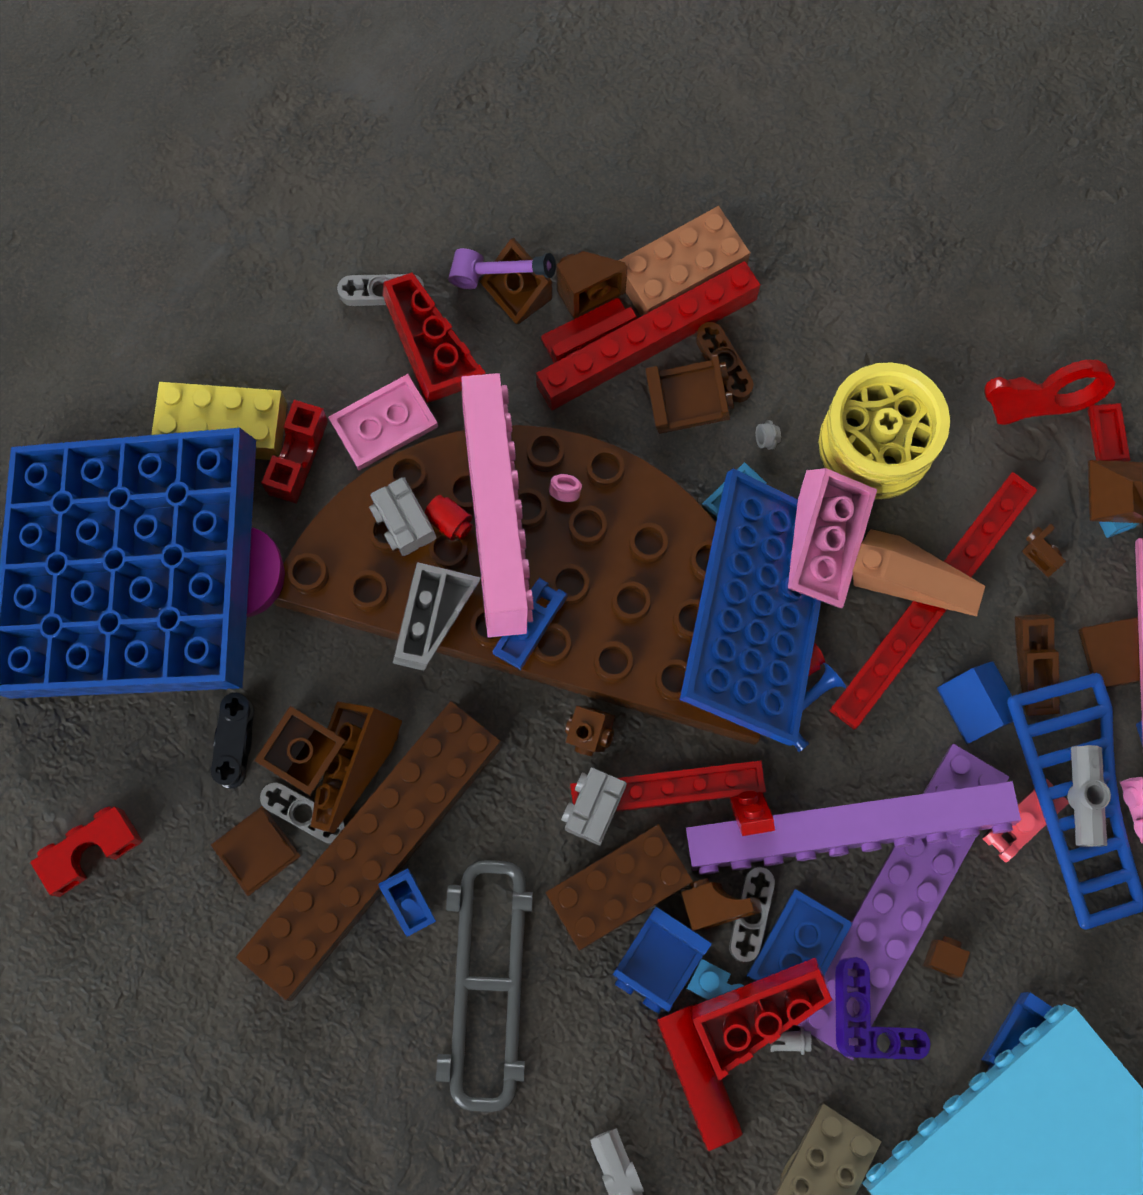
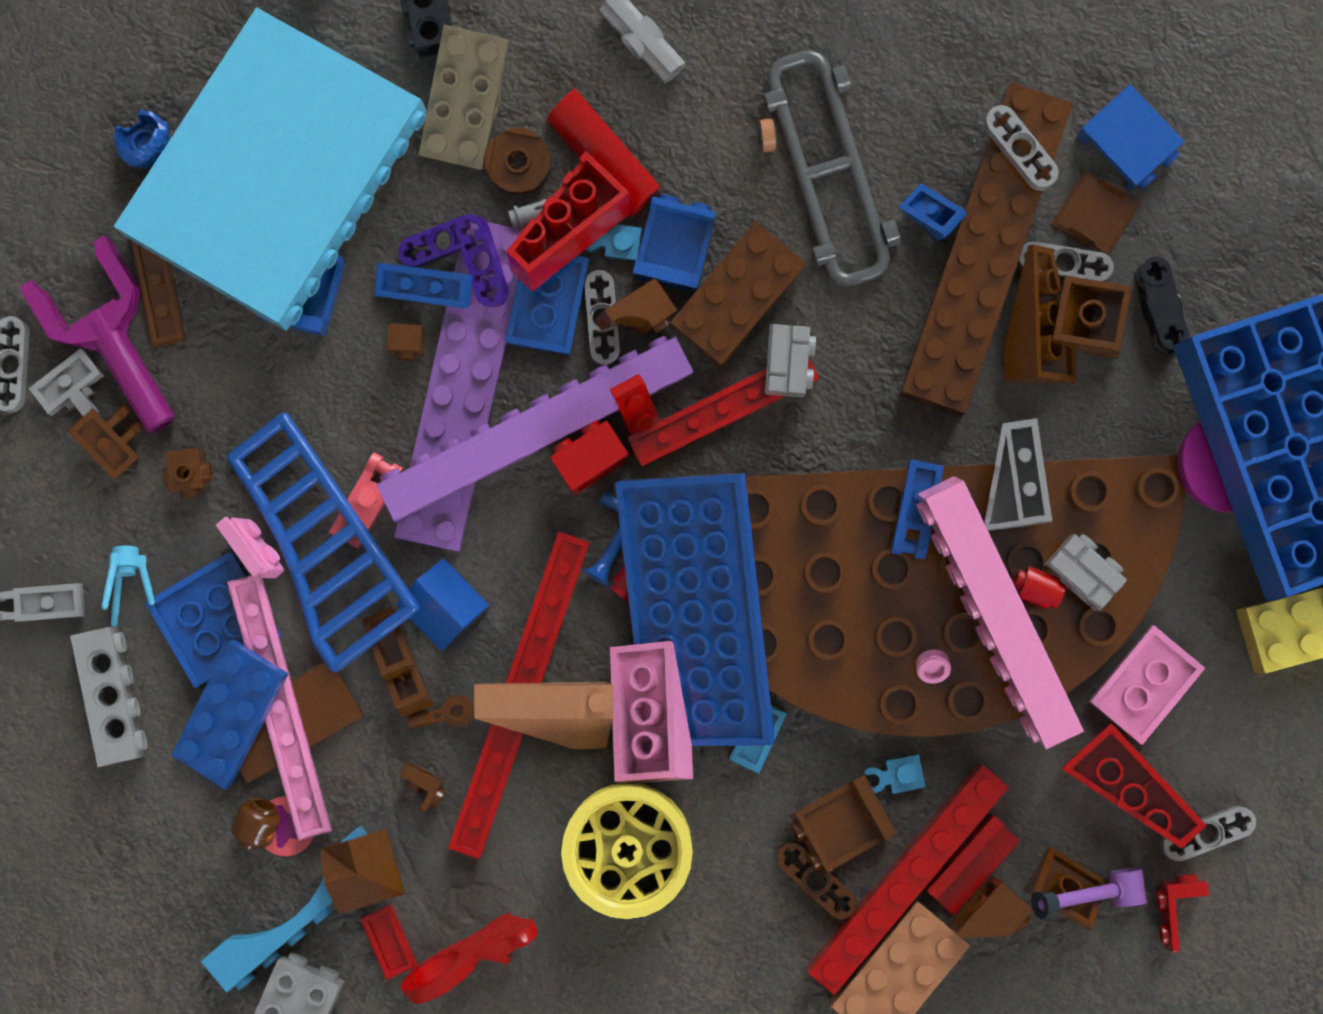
camera: 165 degrees right, 10 degrees up
(60, 864) = (1272, 131): red arch -> none
(193, 907) = (1132, 138): none -> blue panel
(288, 905) = (1044, 160): none -> light grey beam
(303, 434) = (1220, 598): red arch -> none
(428, 254) = (1185, 886): none -> red bracket
(535, 1036) = (767, 135): none -> nougat tile
(590, 730) = (818, 436): reddish brown brick -> none
(620, 421) = (901, 774): none -> dark azure plate
(767, 435) = (743, 812): light grey plate -> none
(790, 1119) = (528, 177): none -> reddish brown plate
(809, 781) = (589, 456): none -> red brick
(916, 1004) = (423, 285): none -> blue plate
(996, 605) = (455, 711): none -> reddish brown plate
(1089, 816) = (307, 515): light grey piece -> none

